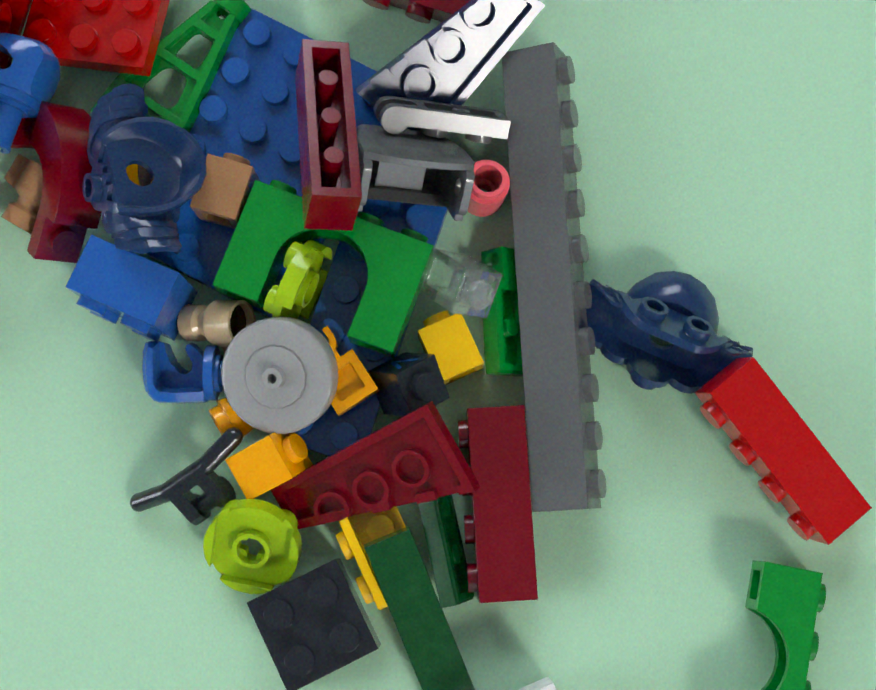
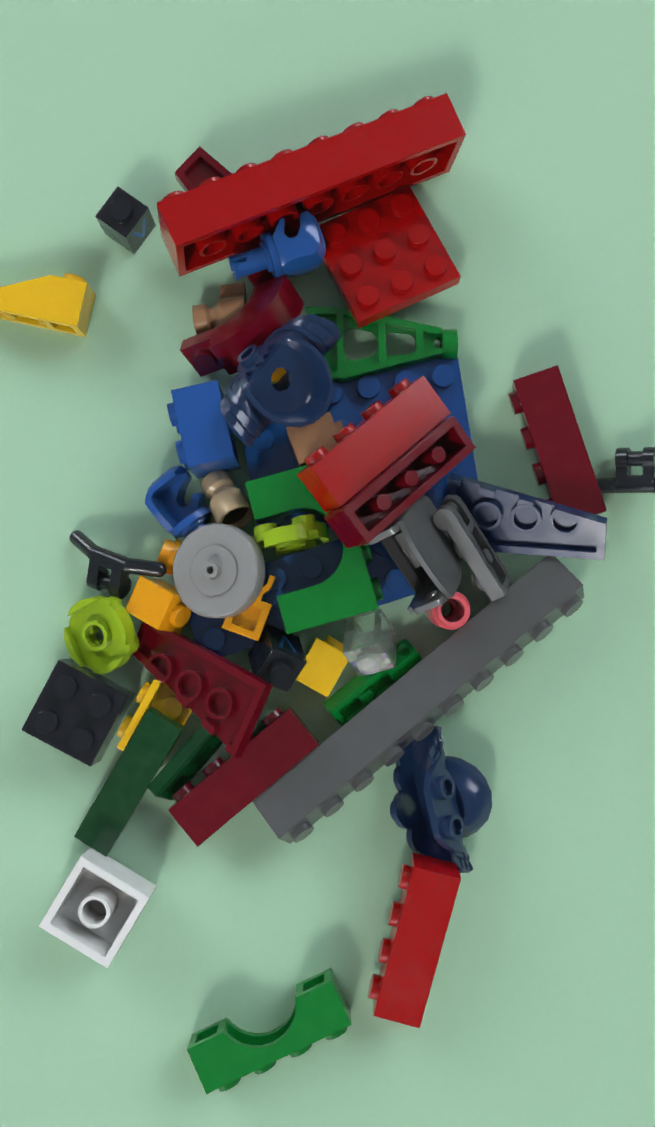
camera: 55 degrees right, 5 degrees up
(271, 134) = (373, 444): none -> red brick

